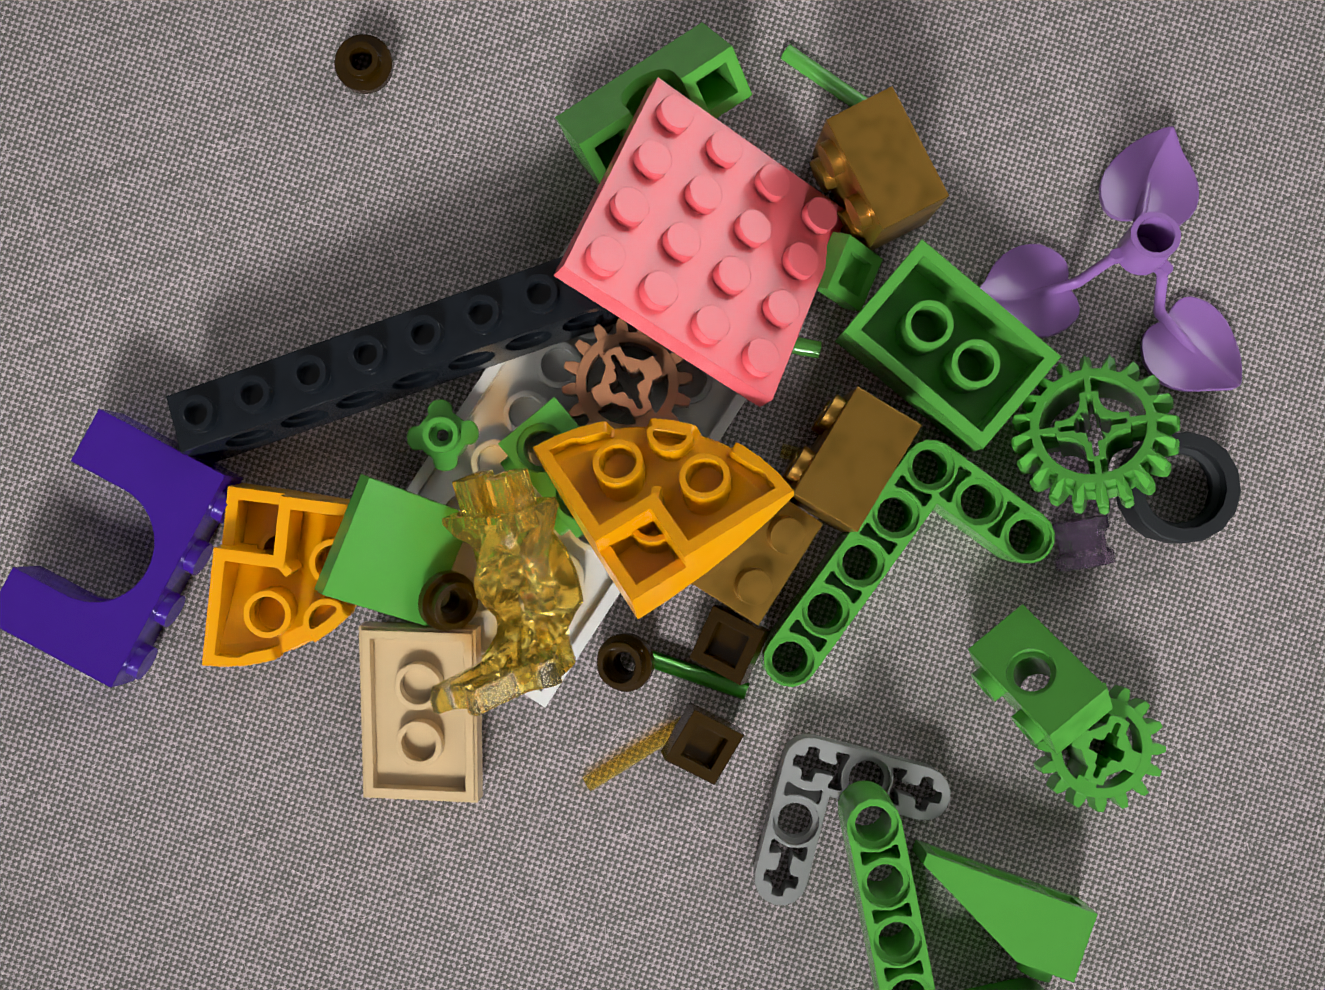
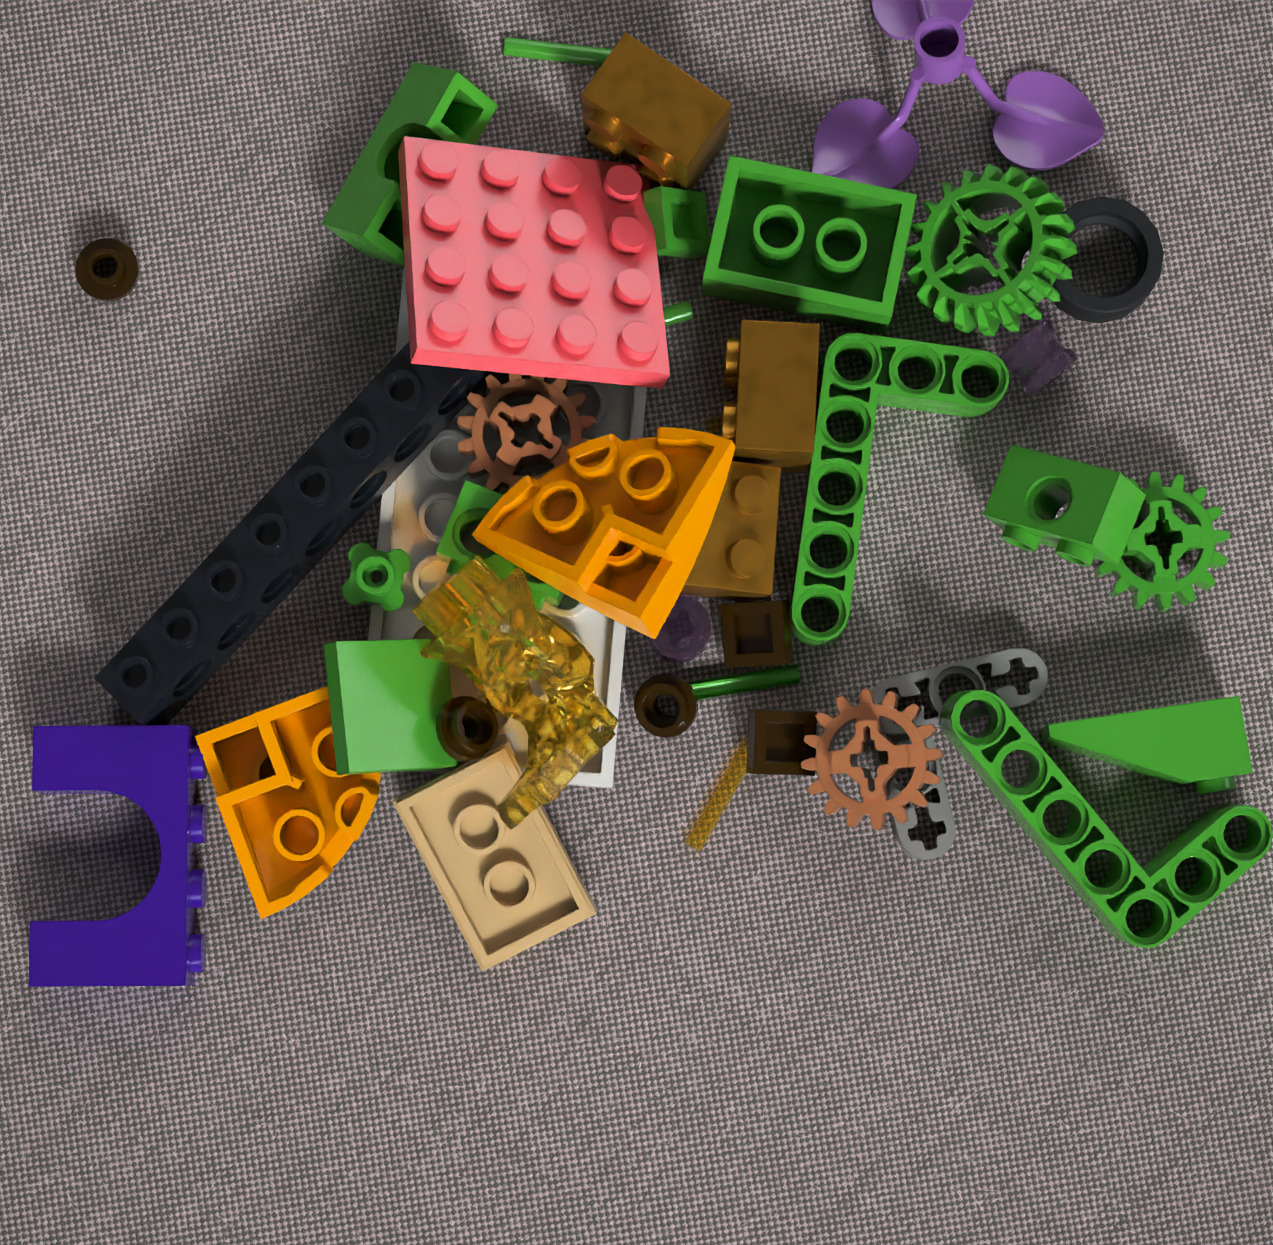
camera: 25 degrees left, 5 degrees down
(681, 619) = (684, 643): none -> clear purple wheel
(794, 817) = (876, 790): none -> nougat gear

